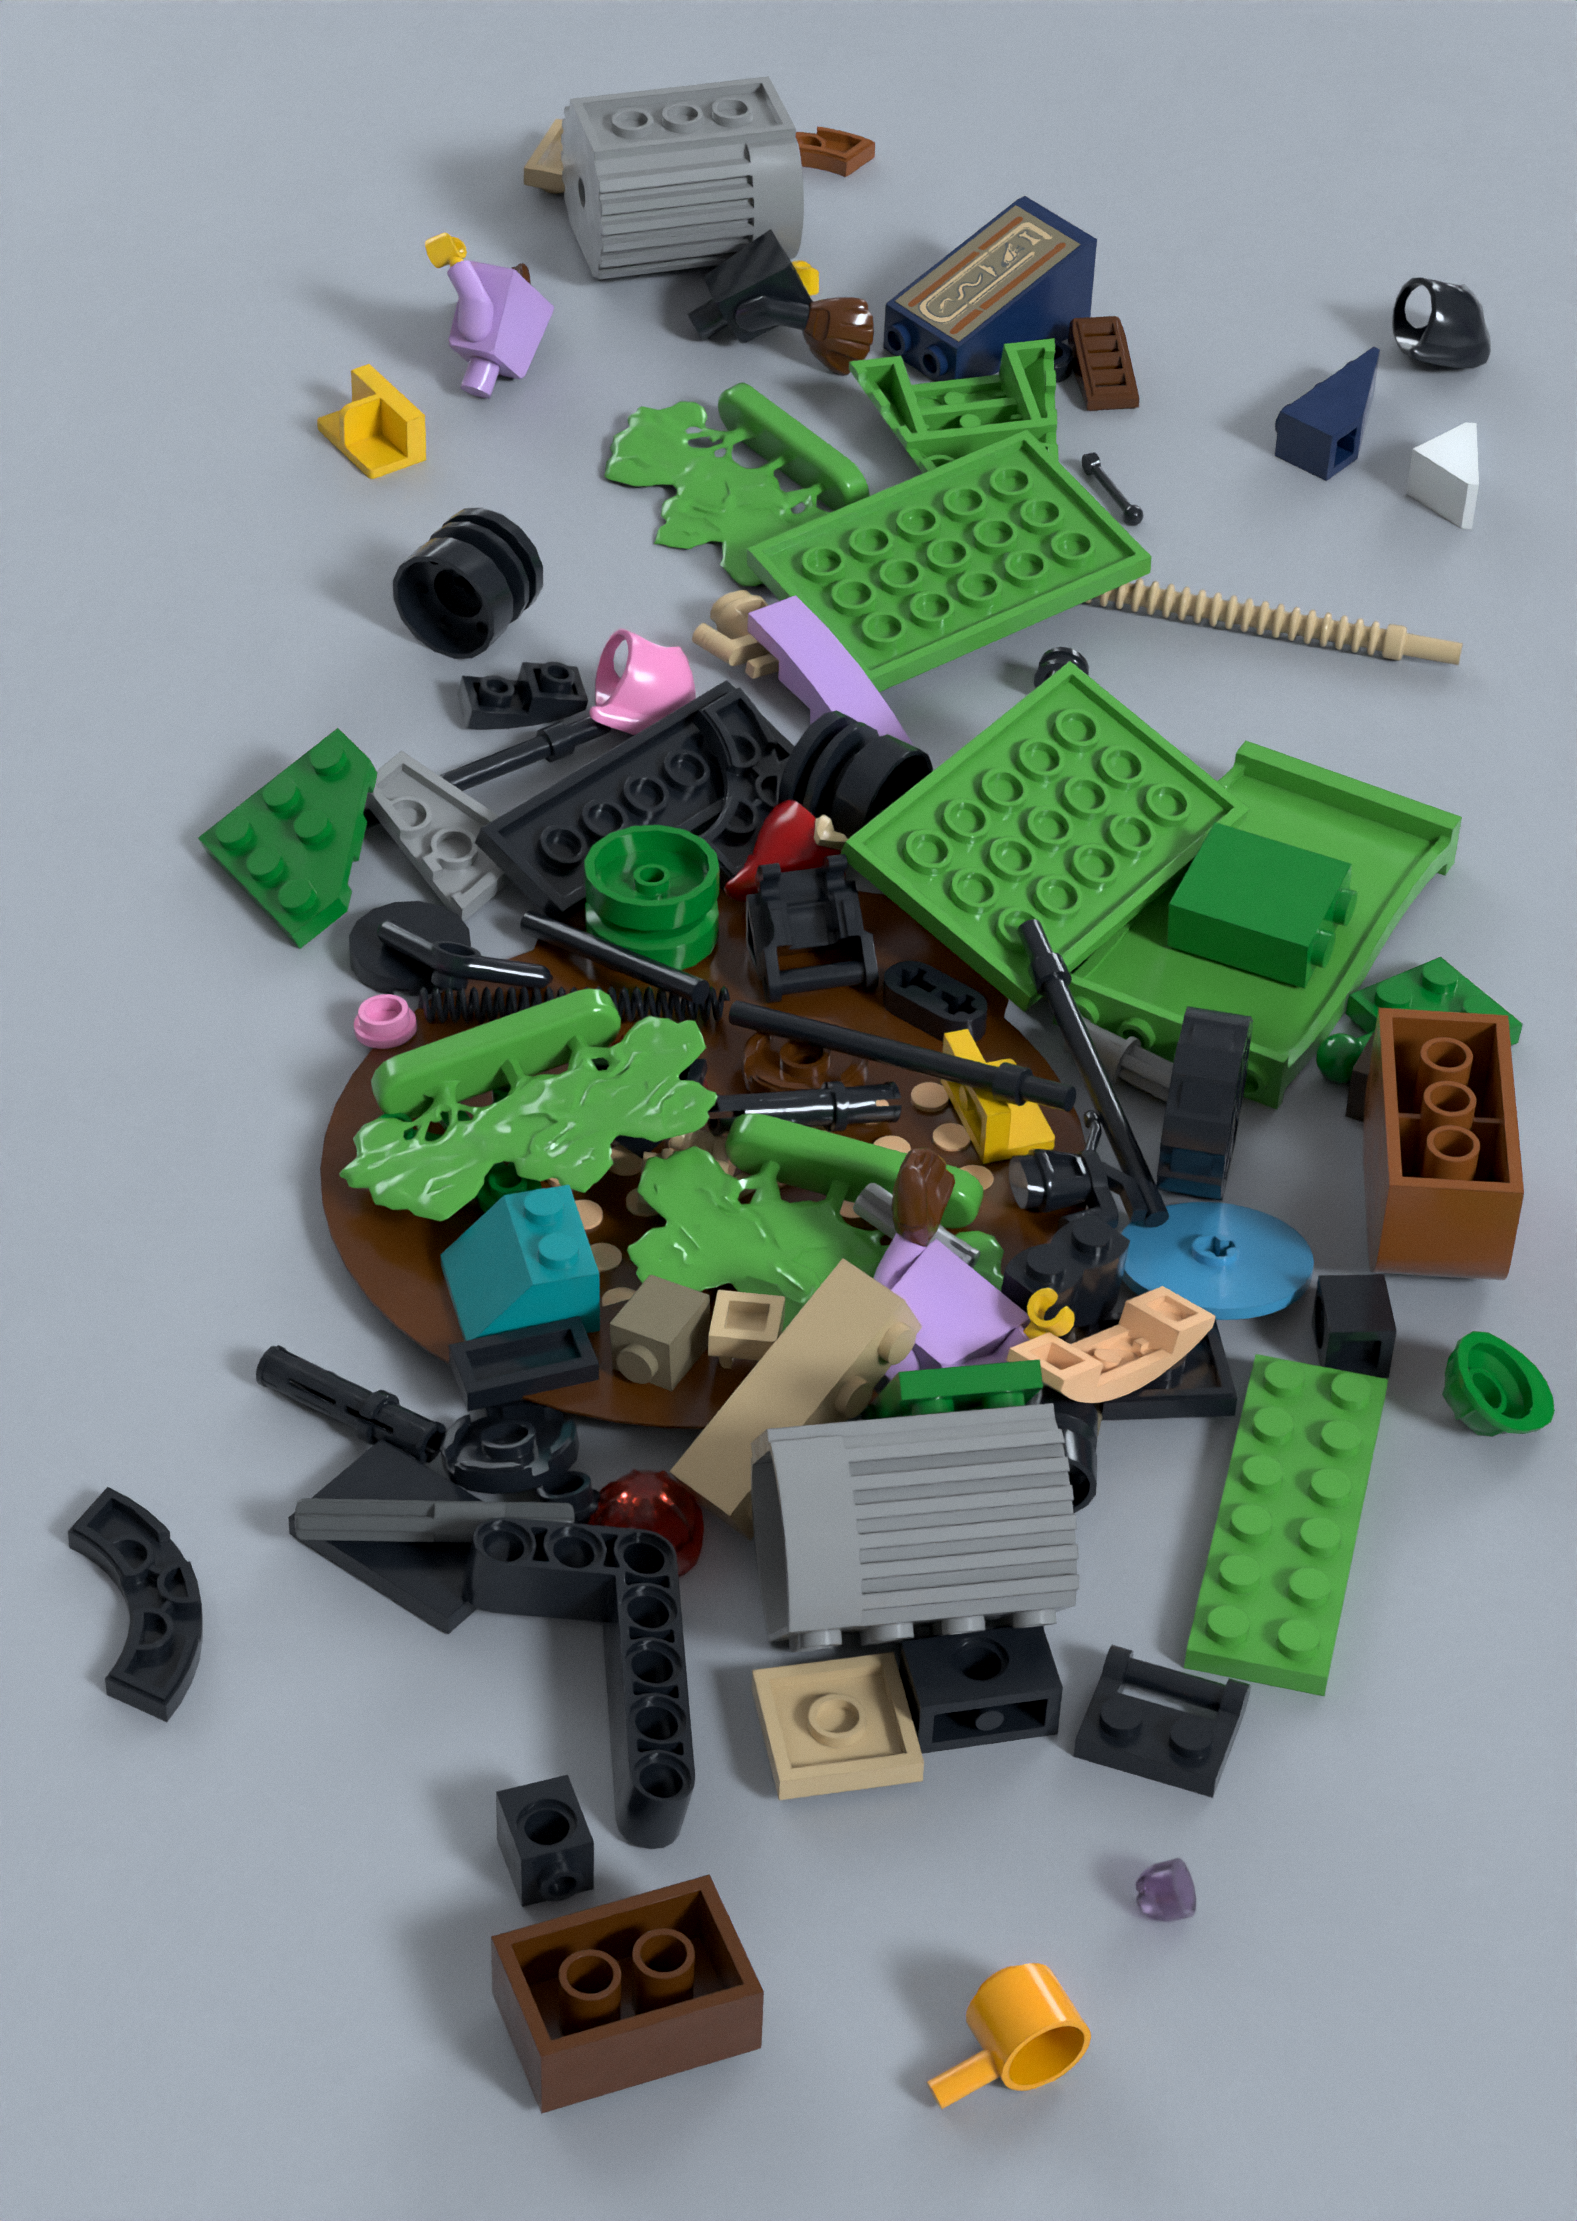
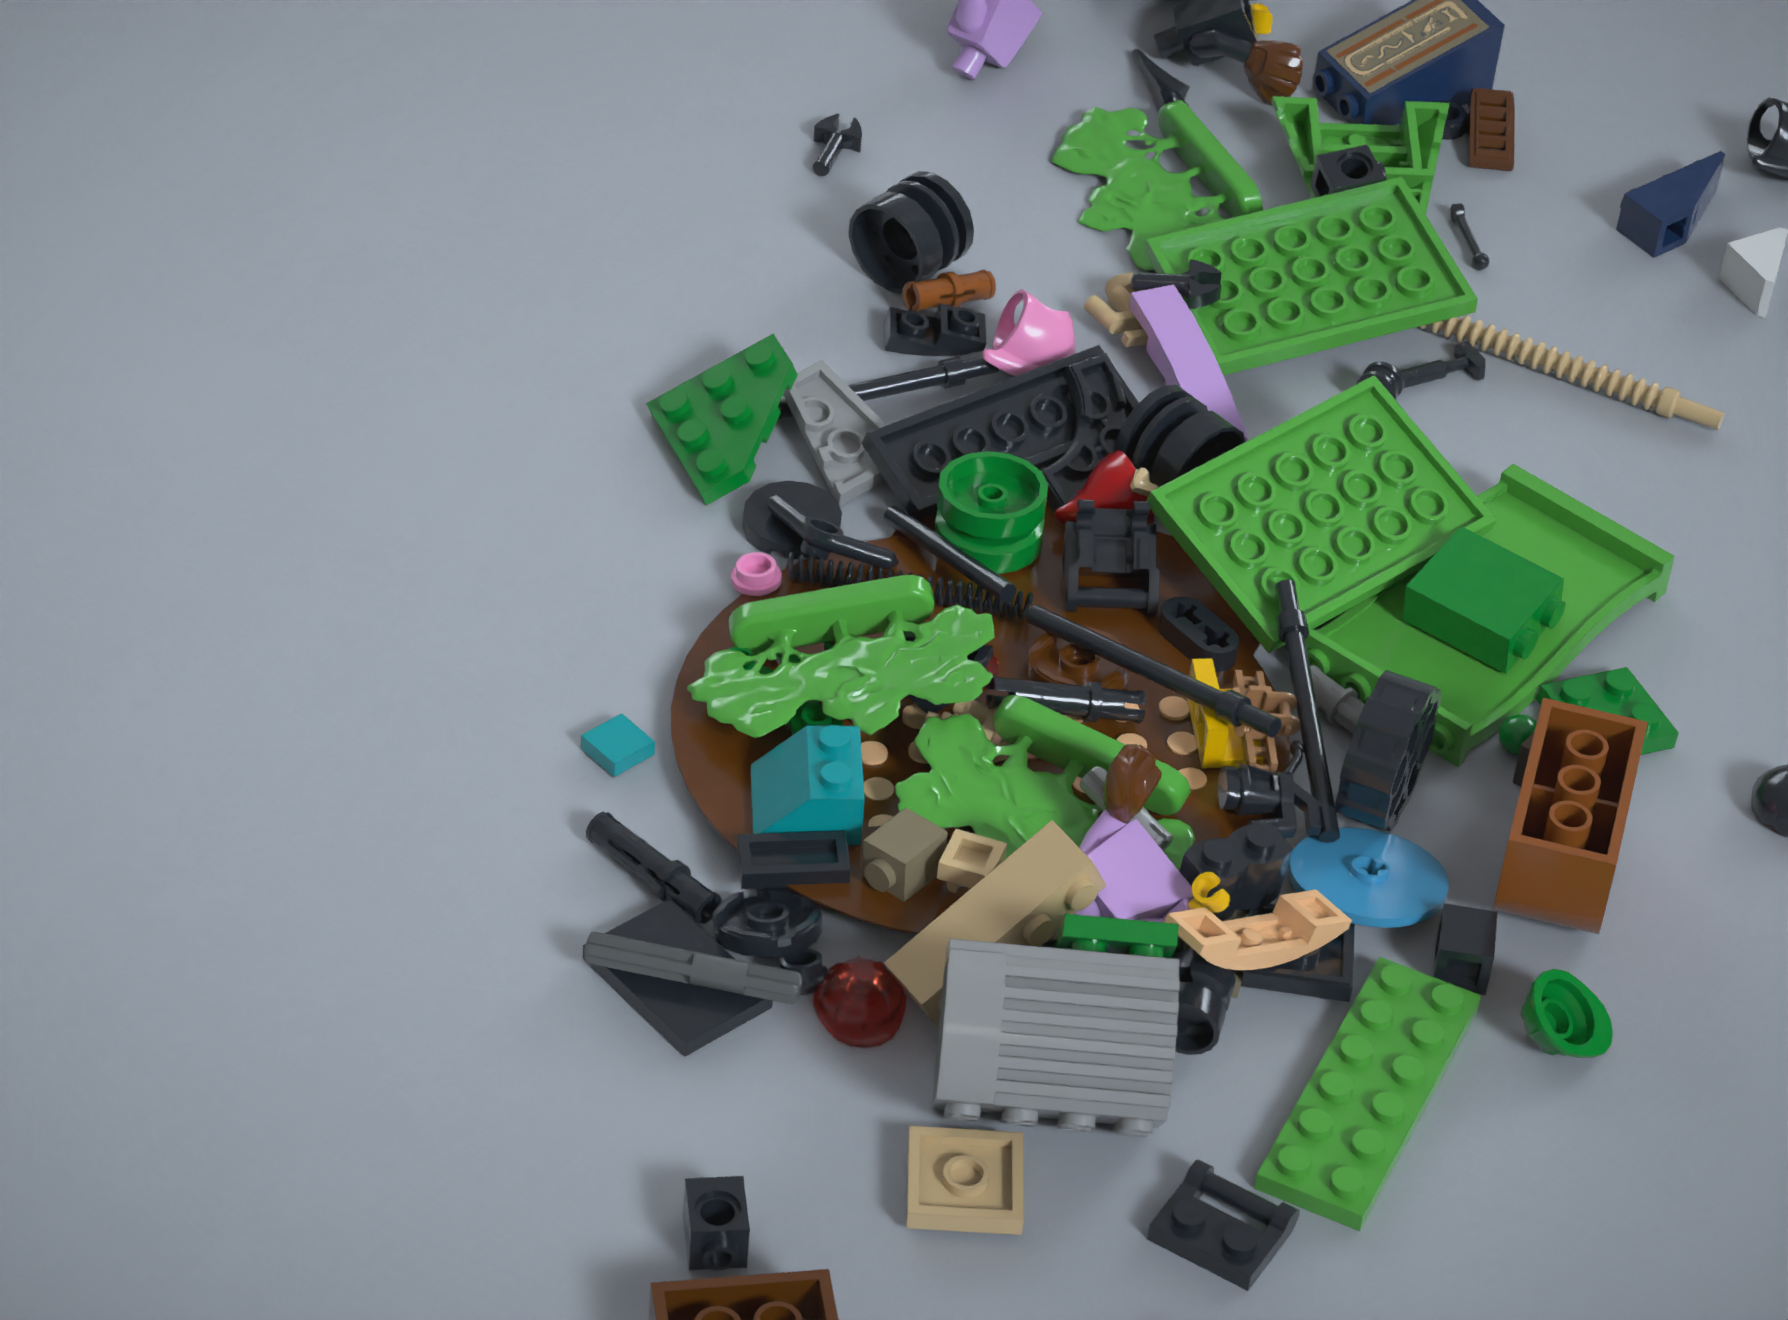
camera: 10 degrees right, 0 degrees up
(160, 1598) = (471, 988): black tile -> none
(267, 1259) = (617, 745): none -> teal tile
(344, 494) = (826, 132): none -> black bar
(379, 426) = (875, 91): yellow panel -> none
(527, 644) = (949, 290): none -> dark orange pin
(632, 1588) = (832, 1045): black beam -> none
(710, 370) = (1161, 84): none -> black piece
(823, 590) = (1198, 284): none -> black bar
(959, 433) = (1346, 170): none -> black brick
(981, 1687) = (1083, 1172): black brick -> none
(1054, 1068) = (1276, 703): none -> medium nougat piece
(1148, 629) = (1466, 358): none -> black piece

